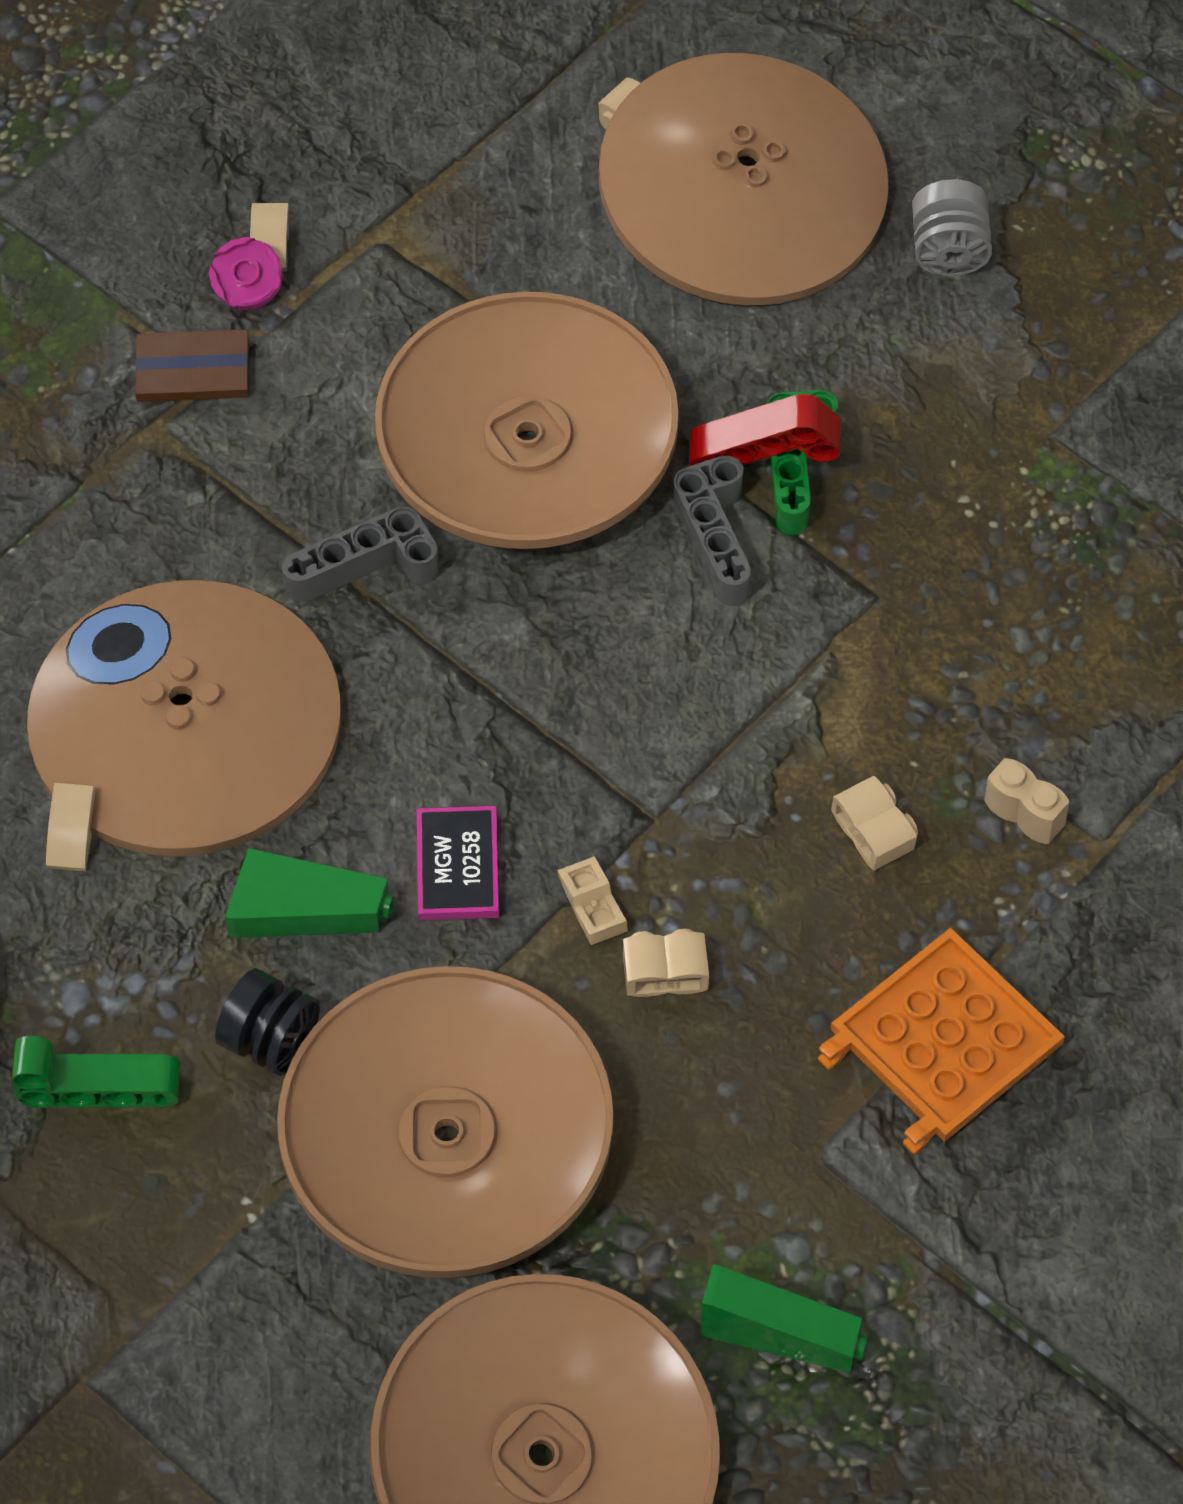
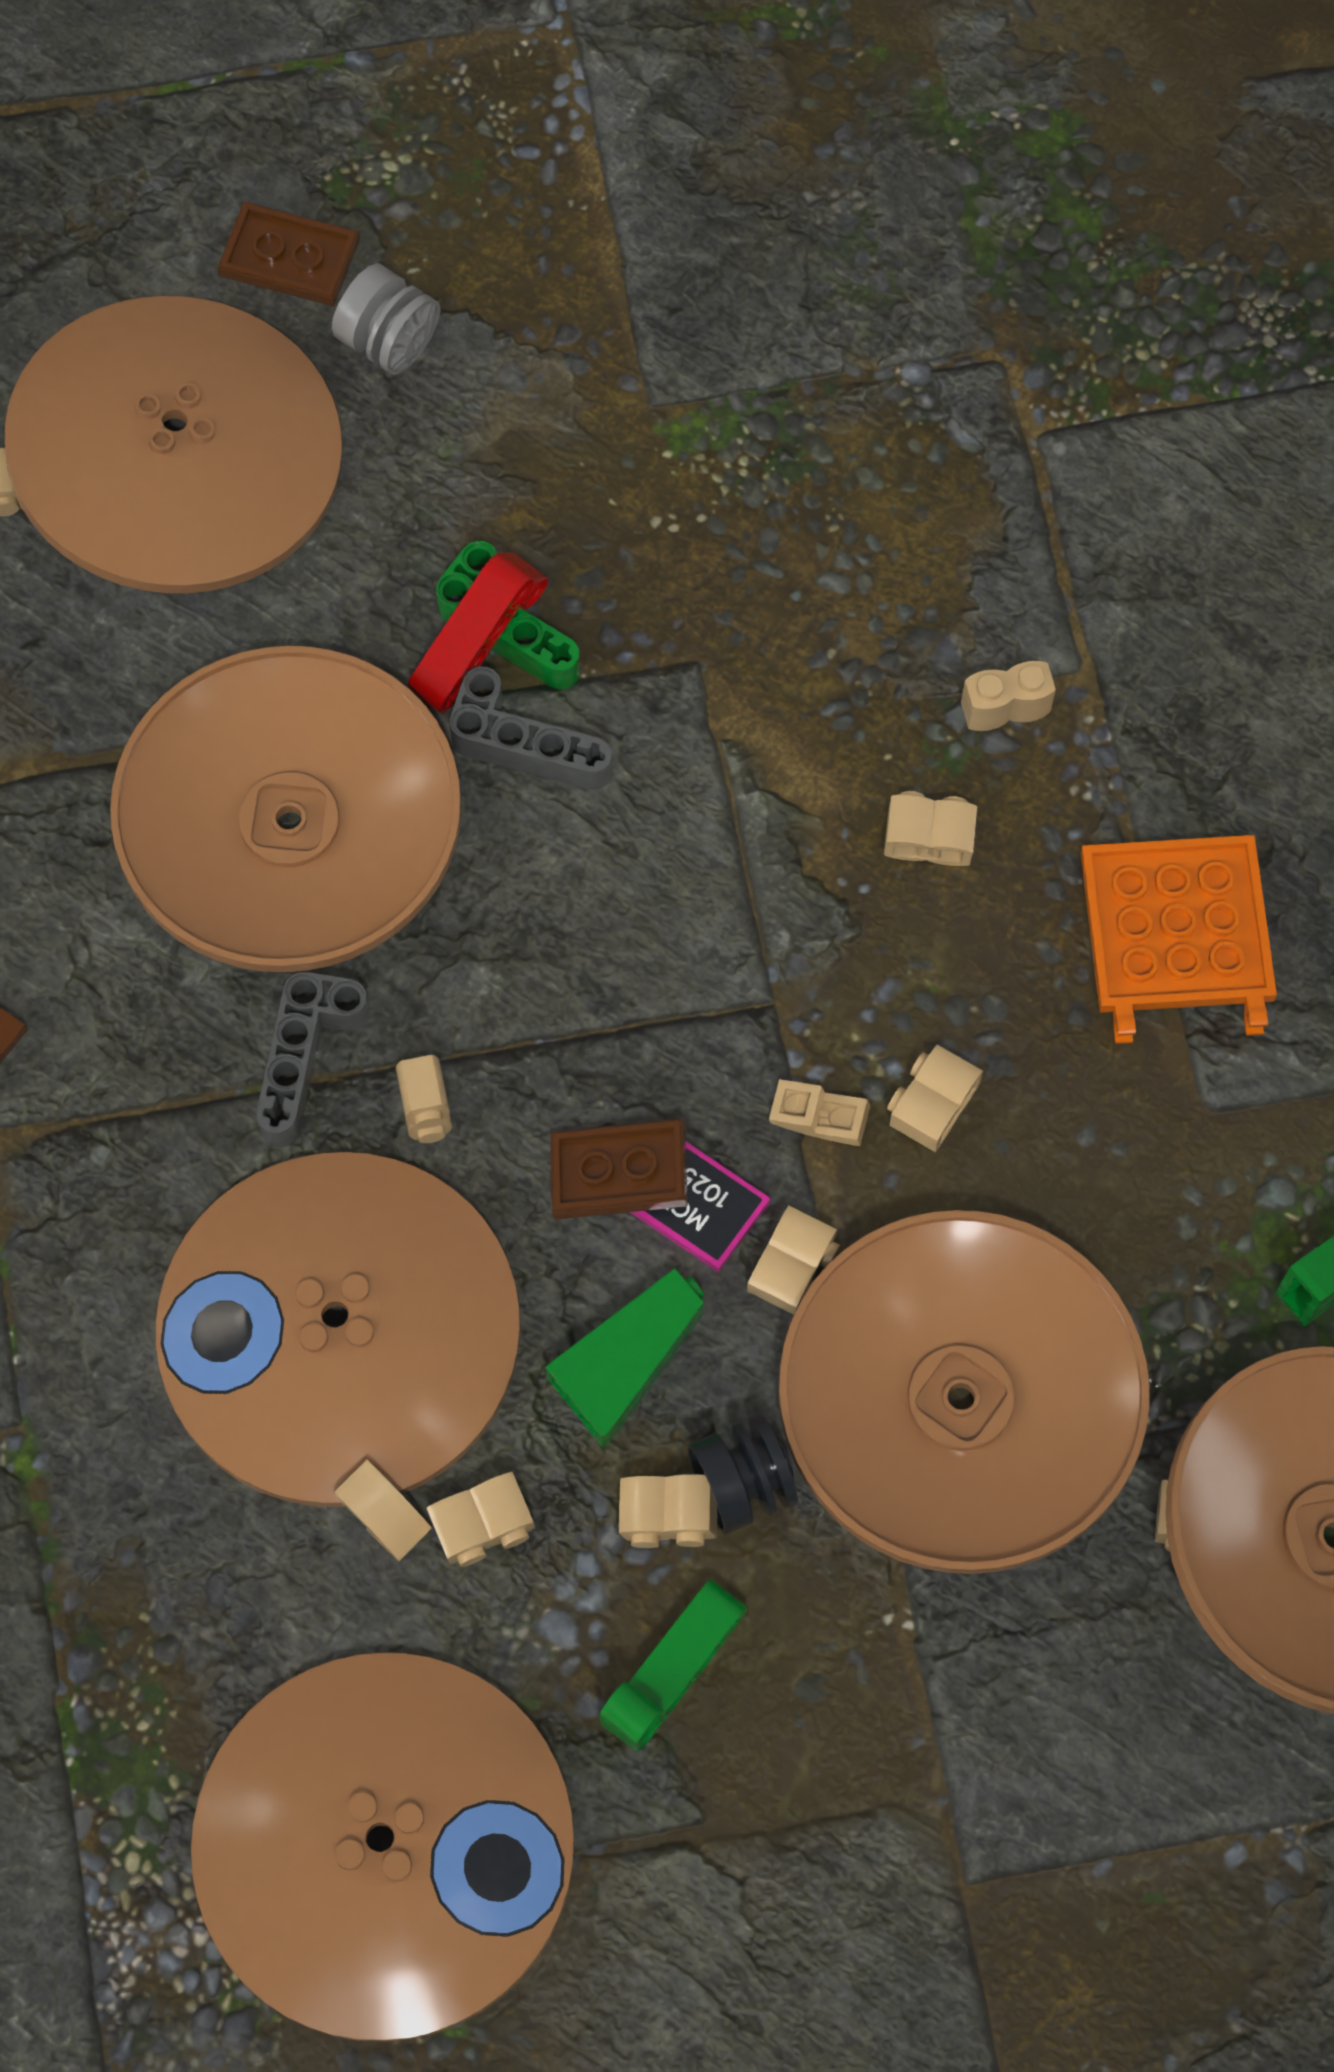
camera: 55 degrees left, 10 degrees up
(111, 890) = (481, 1519): none -> tan brick
(201, 993) = (666, 1510): none -> tan brick
(384, 644) = (424, 1098): none -> tan brick
(438, 801) = (618, 1169): none -> reddish brown tile
(466, 945) = (792, 1259): none -> tan brick
(957, 144) = (288, 253): none -> reddish brown tile

